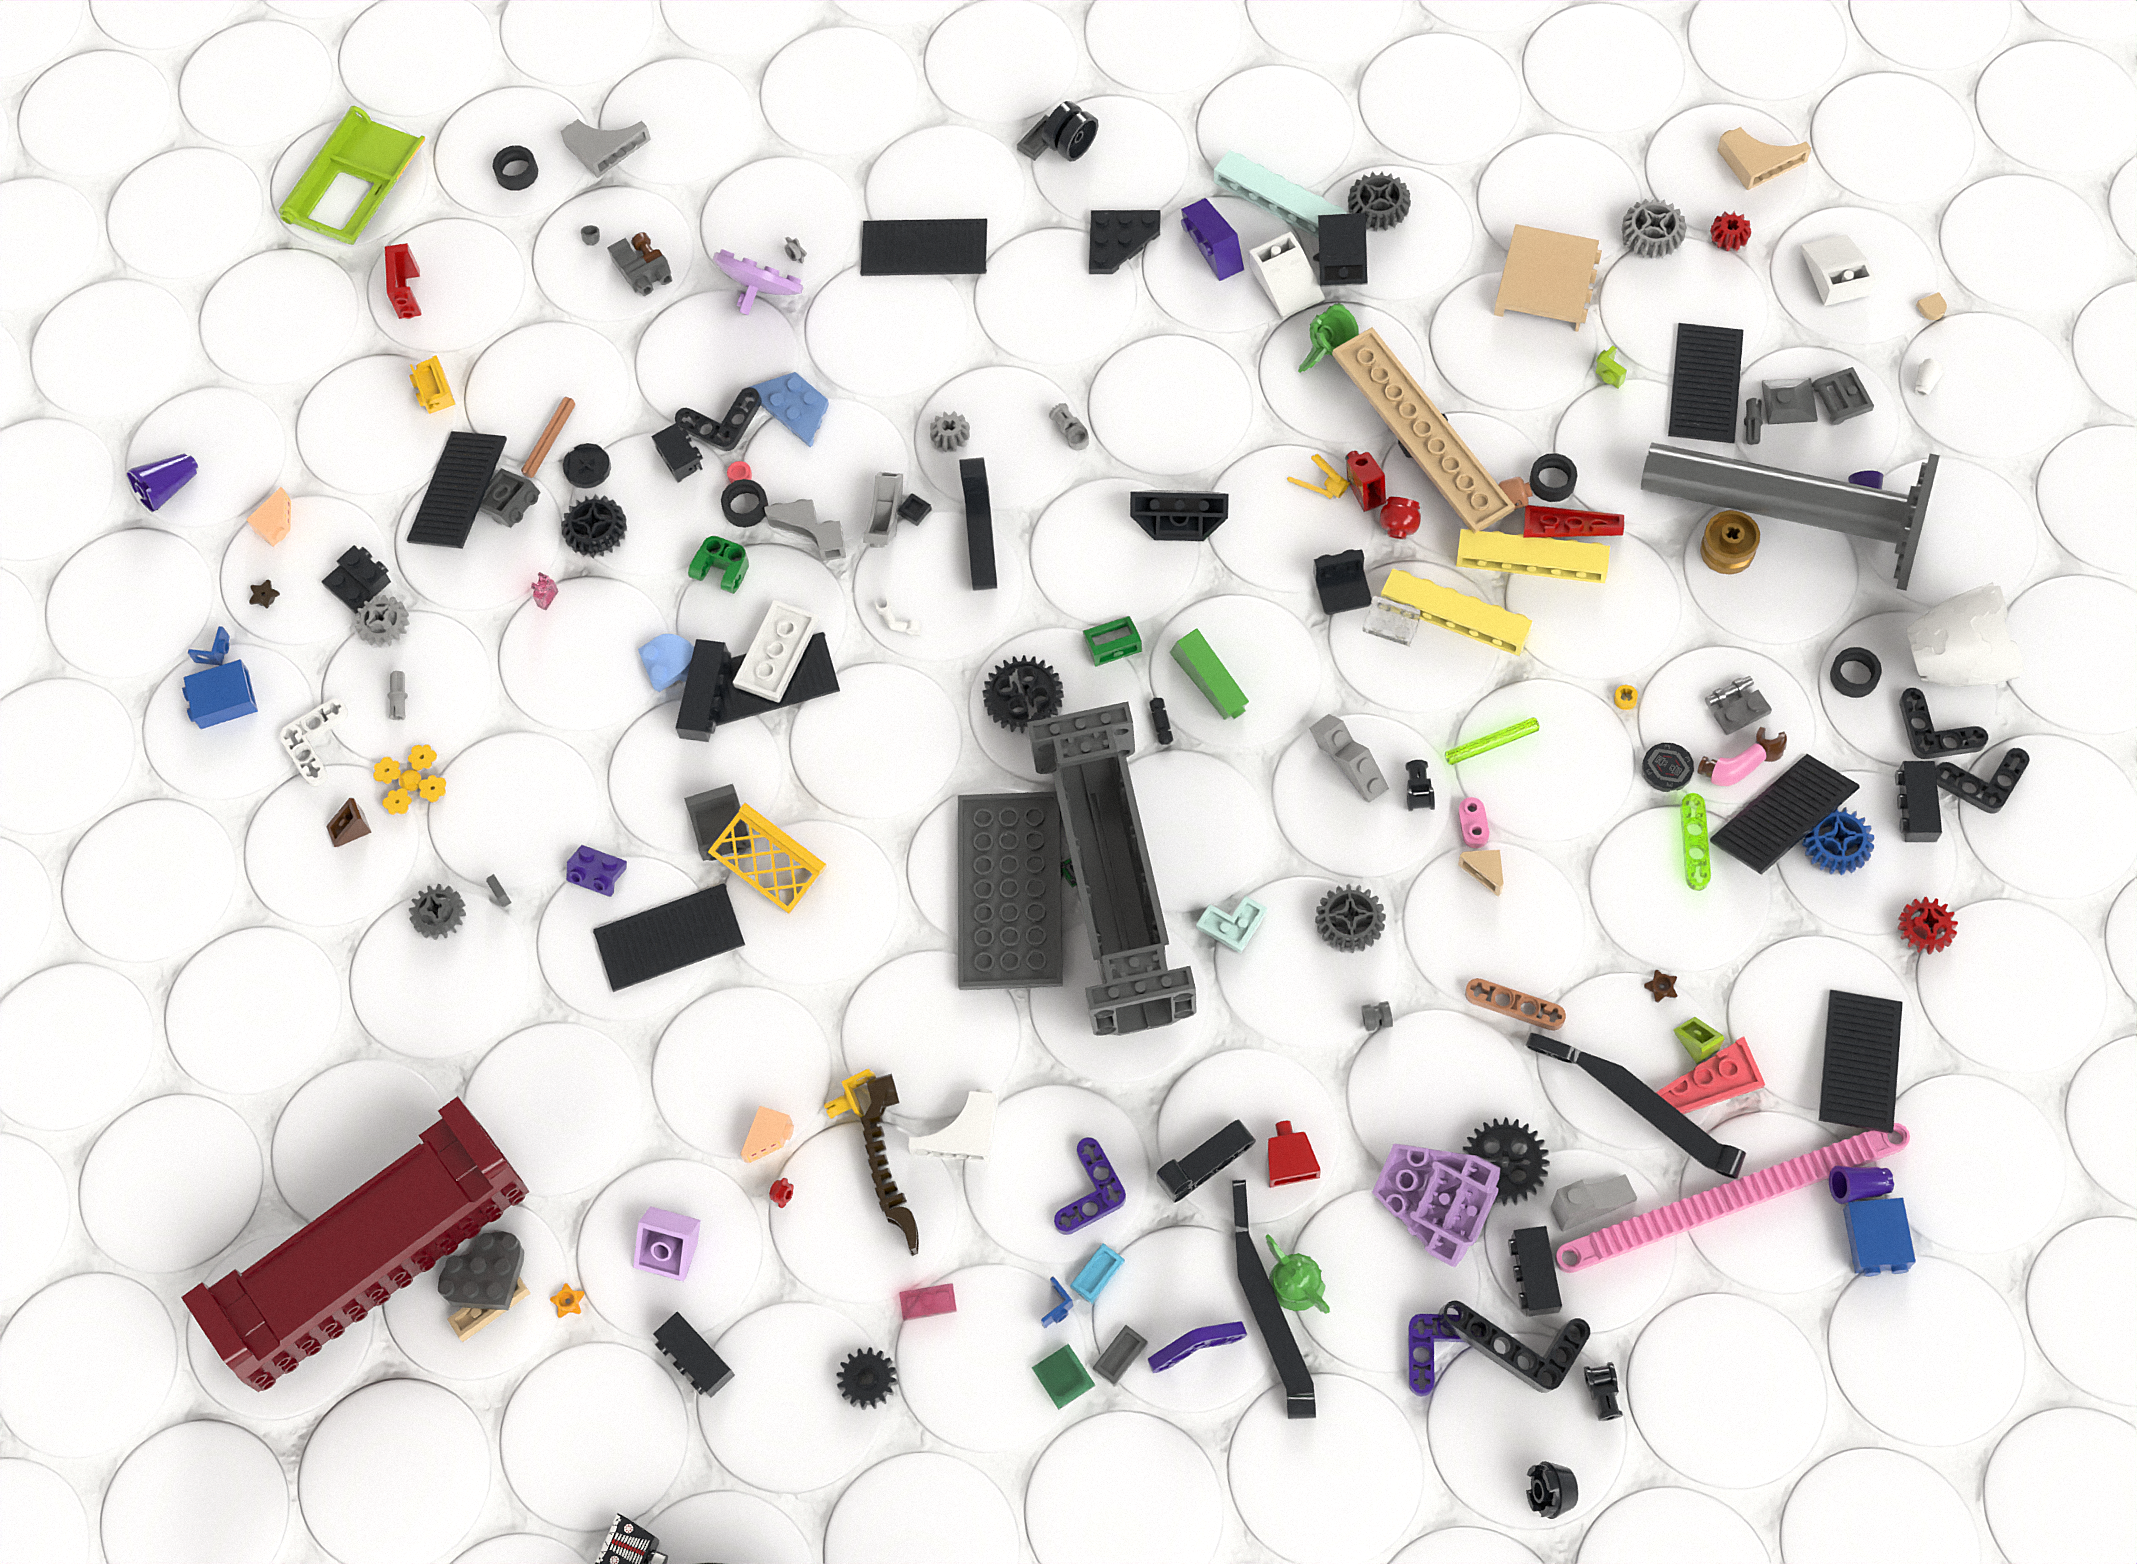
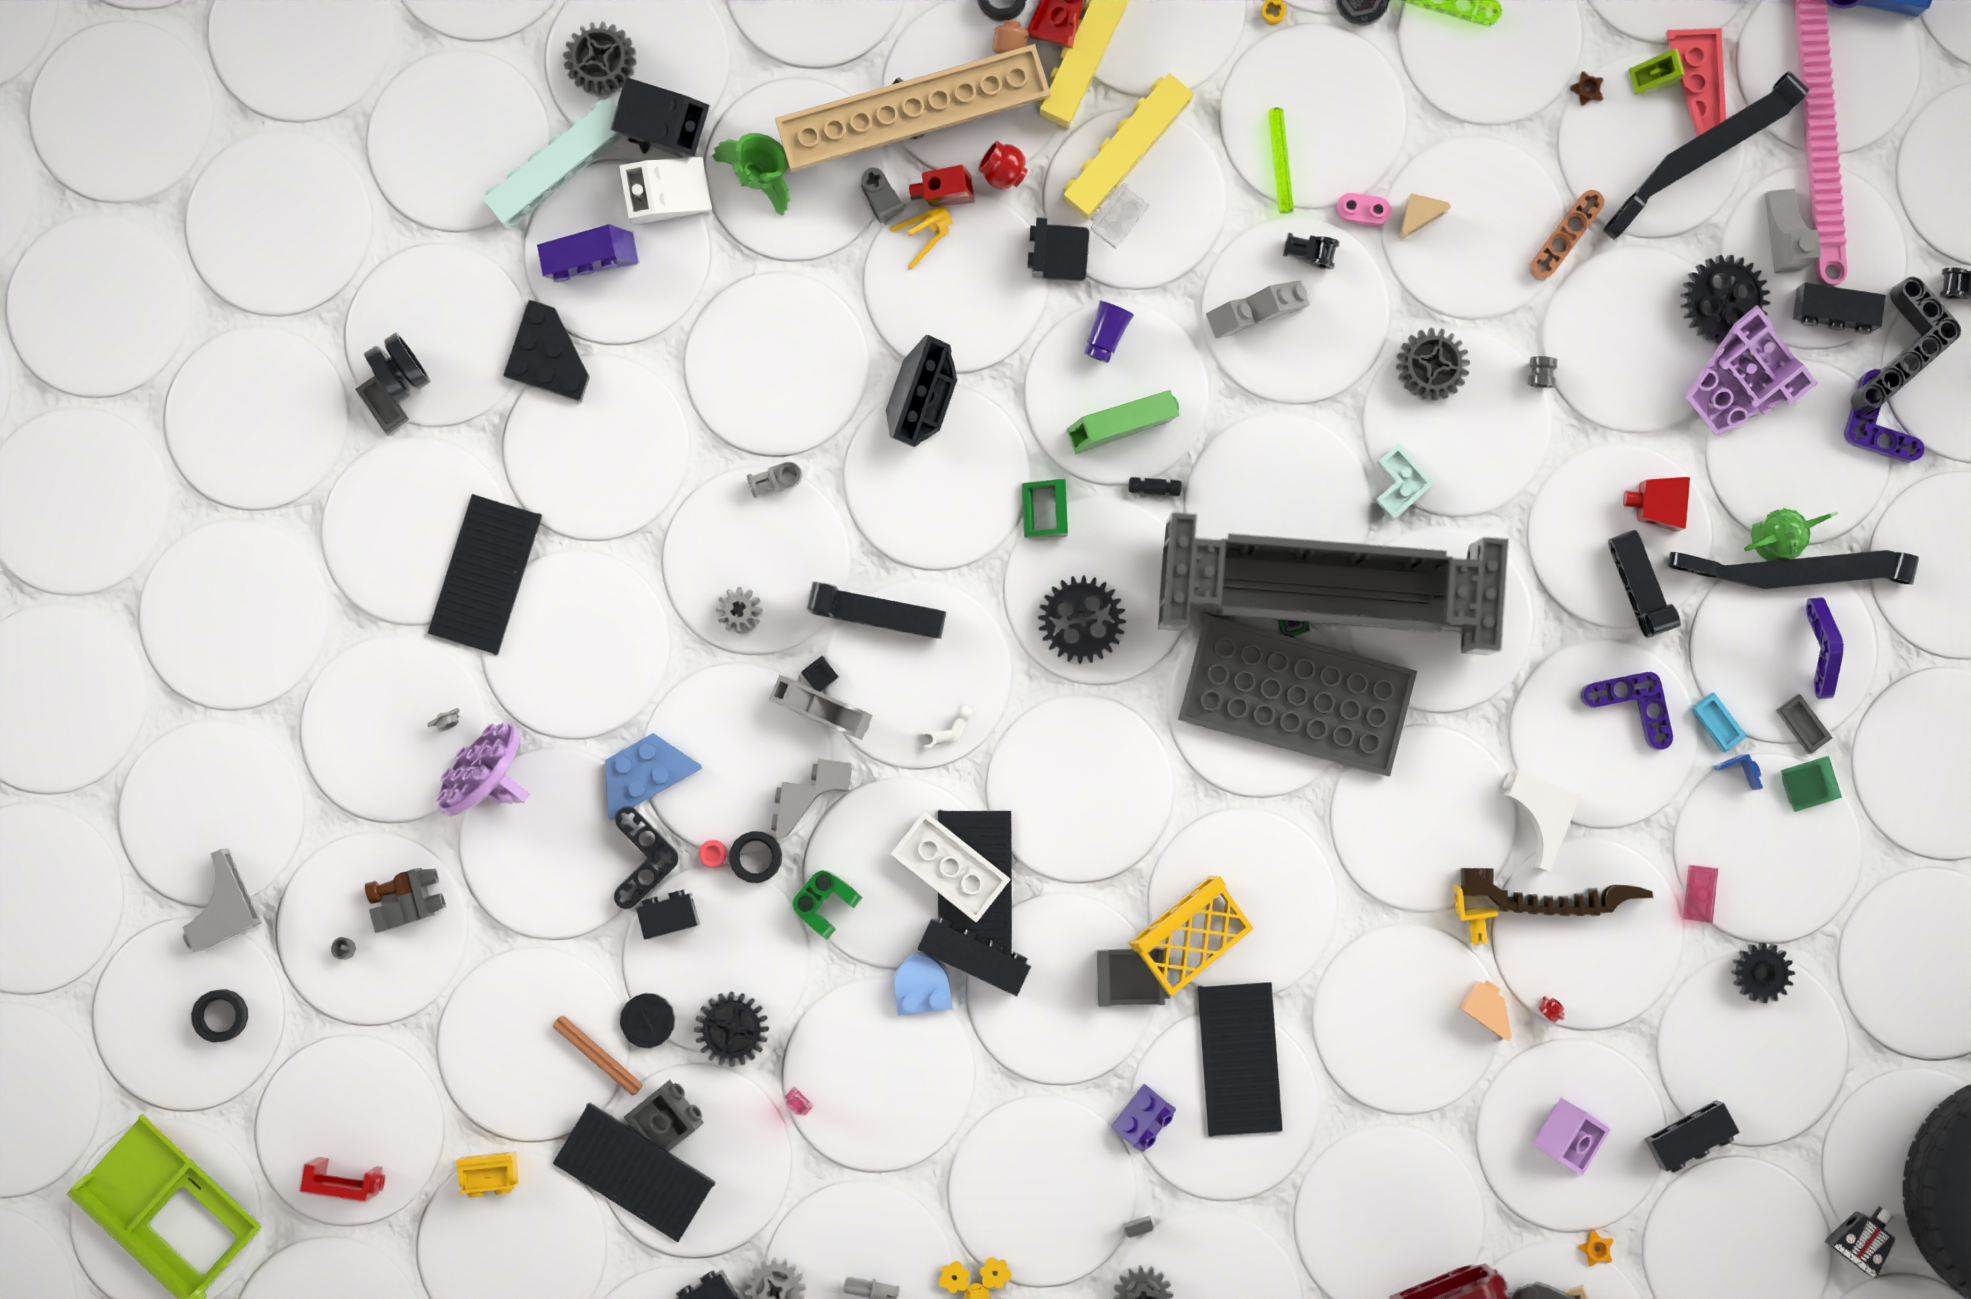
camera: 80 degrees left, 20 degrees up
(1285, 640) = (1107, 331): none -> dark purple plant
(1341, 434) = (883, 198): none -> dark grey piece

